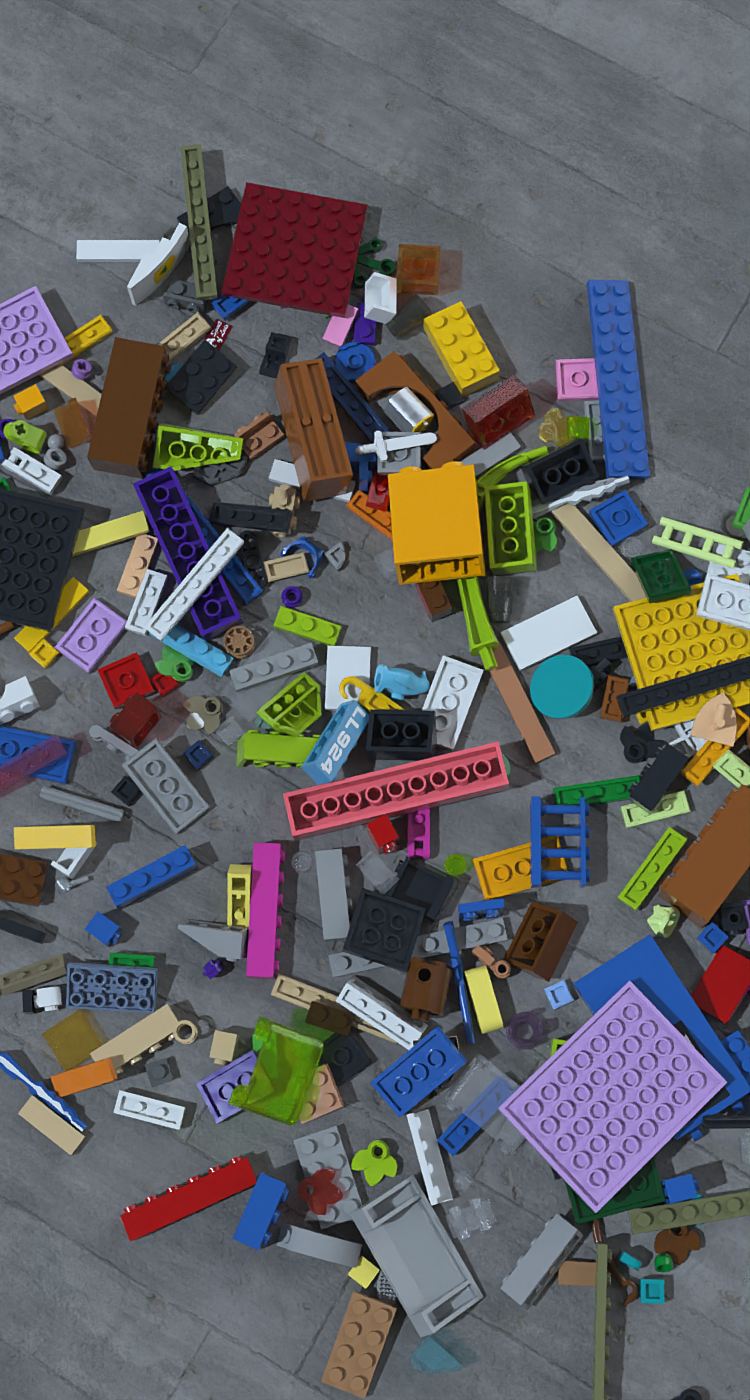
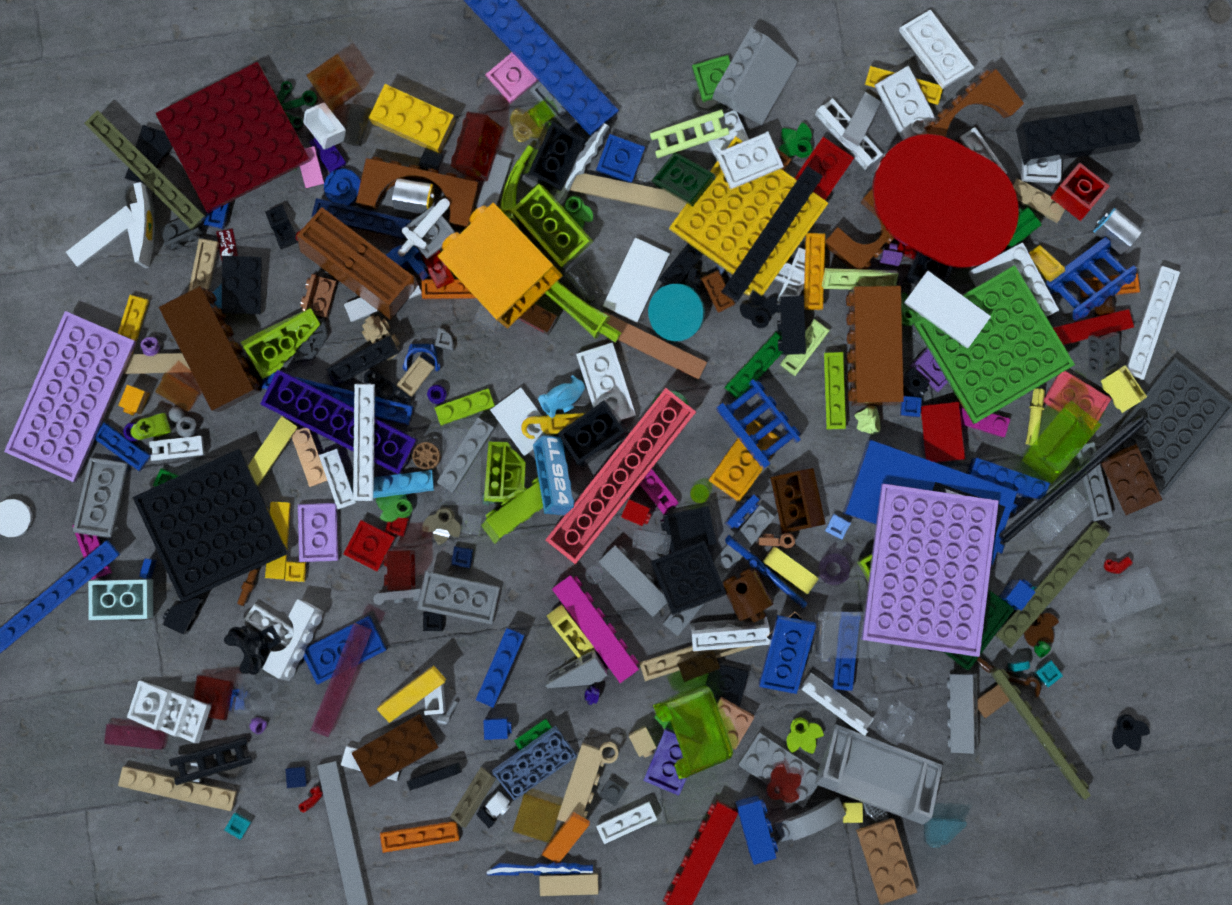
camera: 40 degrees left, 10 degrees up
(82, 803) = (409, 654): light grey axle -> none
(693, 576) = (705, 161): blue tile -> none
(716, 721) = (801, 254): light nougat shield -> none

